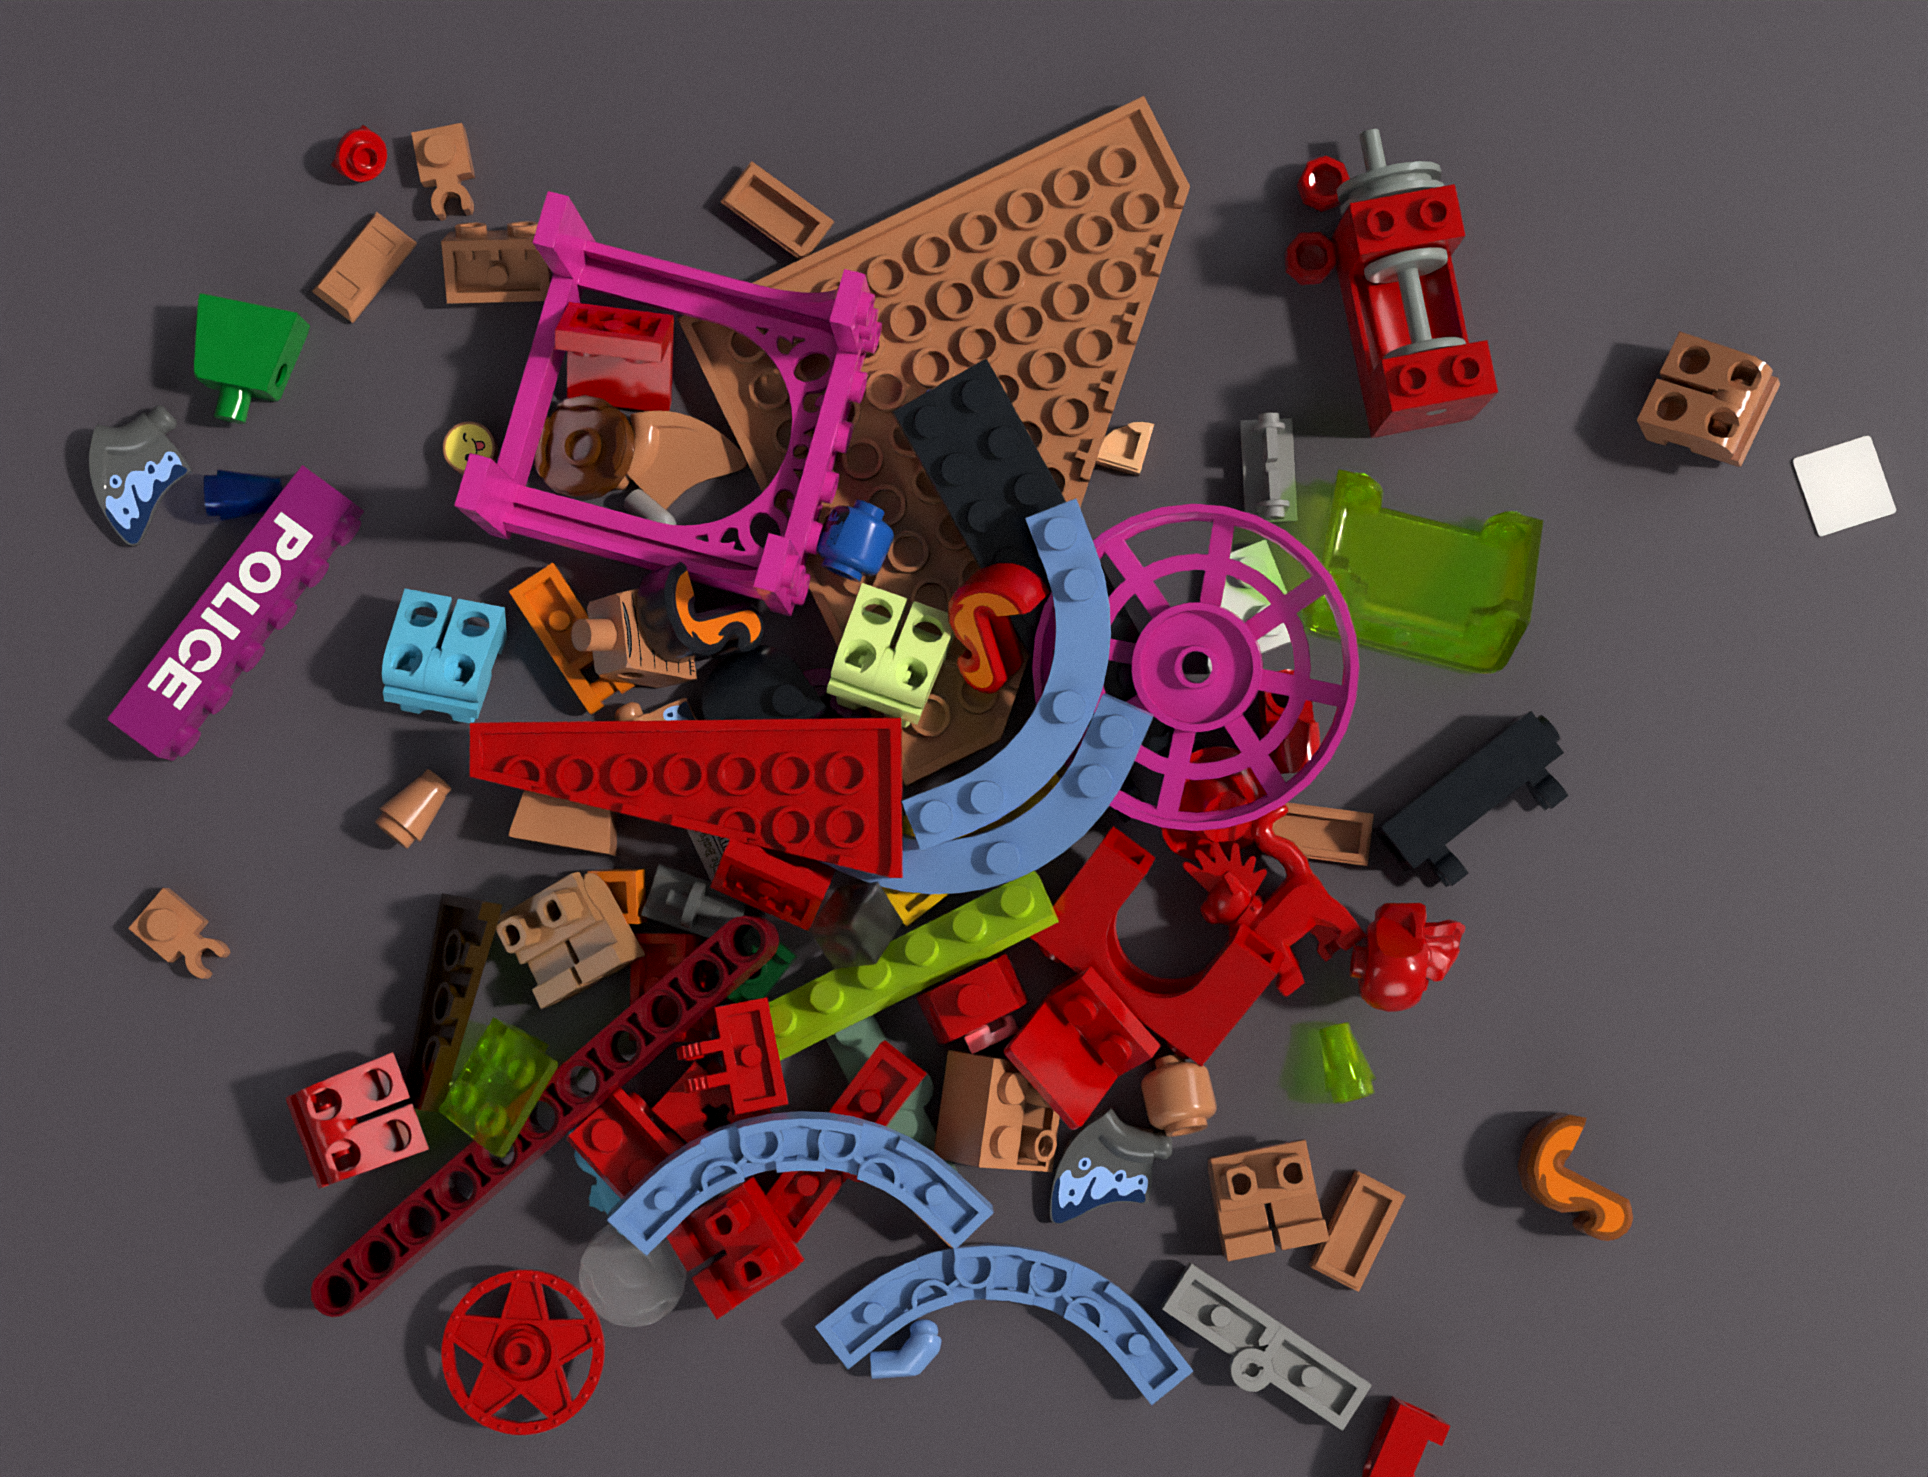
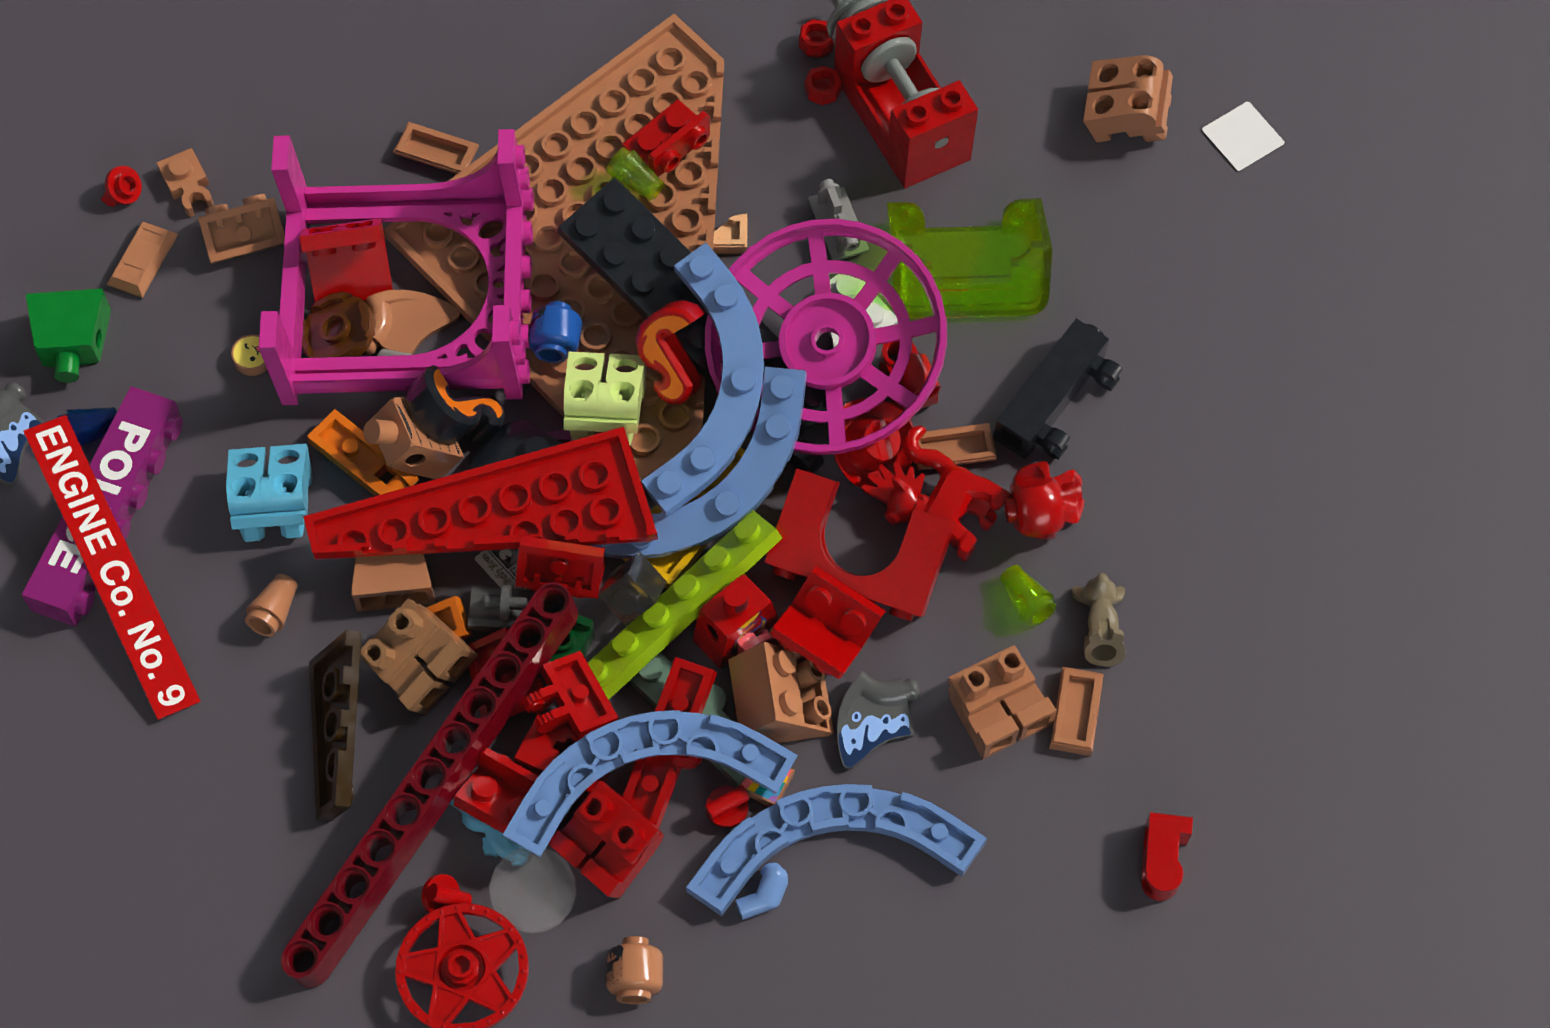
camera: 15 degrees left, 20 degrees down
(173, 929) = (105, 741): nougat plate -> none
(224, 705) = (112, 567): none -> red sticker
(329, 1125) = (284, 835): hips -> none
(499, 1086) = (391, 766): clear neon green bracket -> none
(527, 1248) = (442, 891): none -> red plate
(725, 1409) = (634, 971): none -> nougat head
(894, 1232) = (727, 806): none -> red plate
(1020, 336) = (634, 174): none -> clear neon green cone
(1079, 293) = (670, 137): none -> red bracket
(1178, 1096) = (911, 647): nougat head -> none
(1264, 1347) = (1035, 809): light grey hinge -> none
(1421, 1152) = (1104, 641): none -> dark tan animal
(1549, 1183) = (1219, 634): dark orange animal -> none

